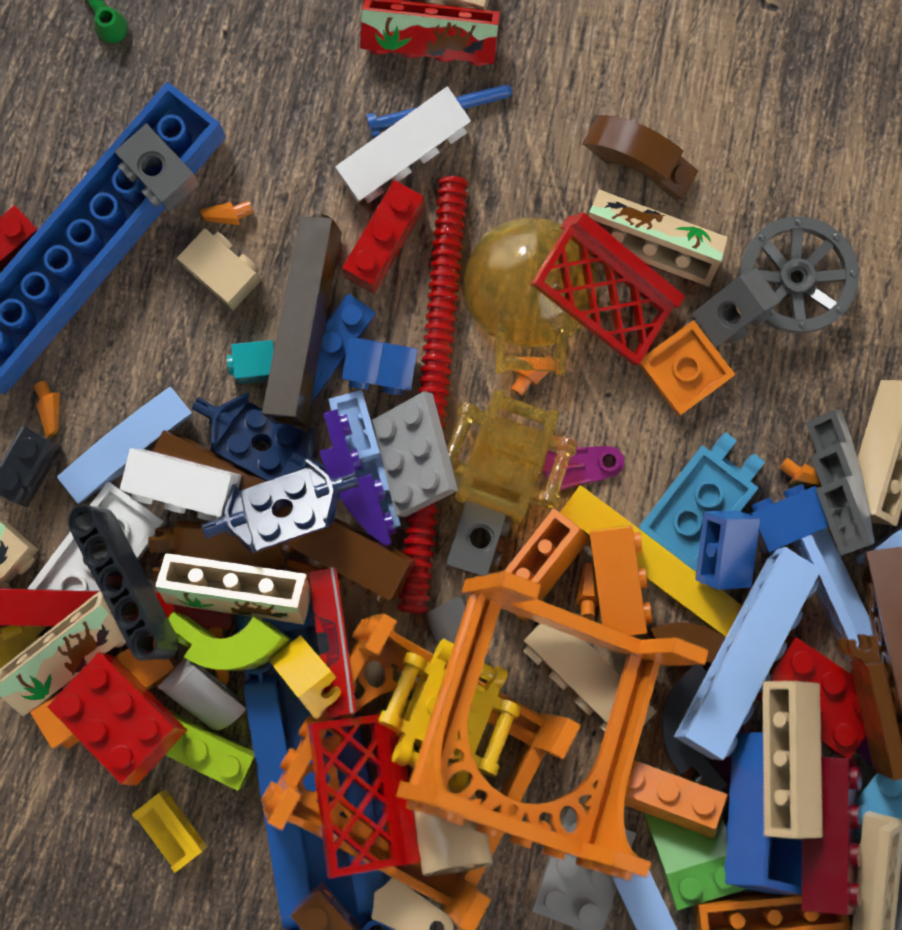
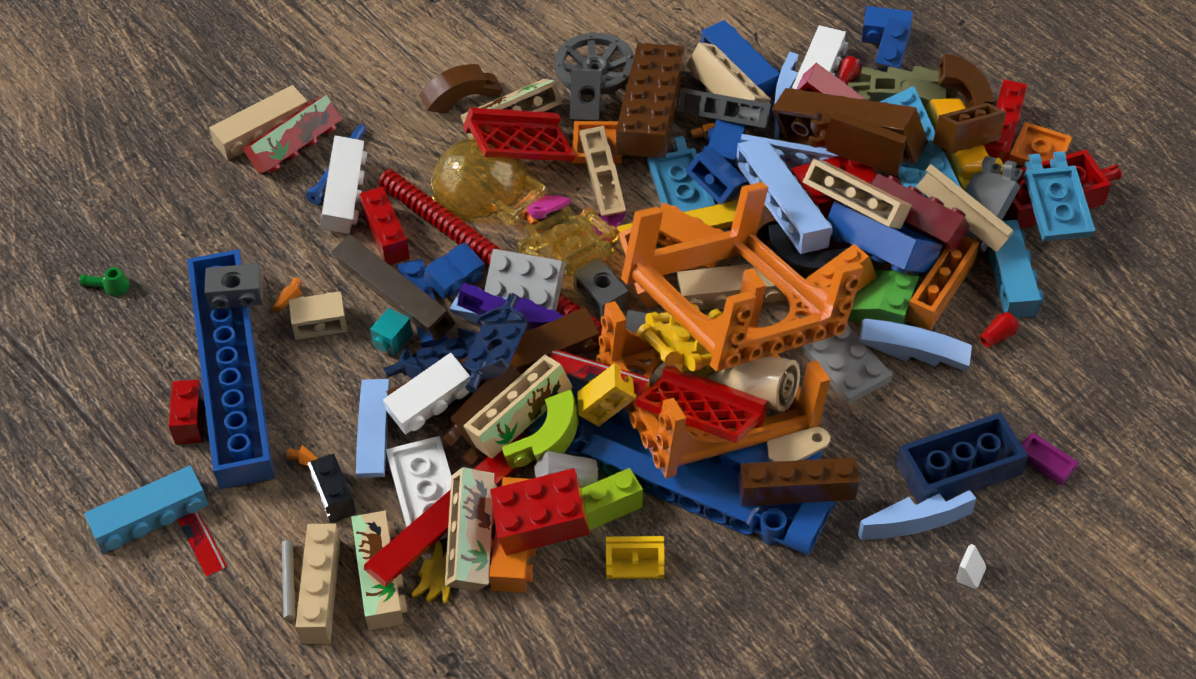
camera: 50 degrees left, 30 degrees down
(96, 532) = (447, 454): black beam -> none
(545, 389) = (545, 205): none -> dark pink piece
(639, 413) = (602, 171): none -> tan slope
(787, 387) = (650, 100): none -> reddish brown brick

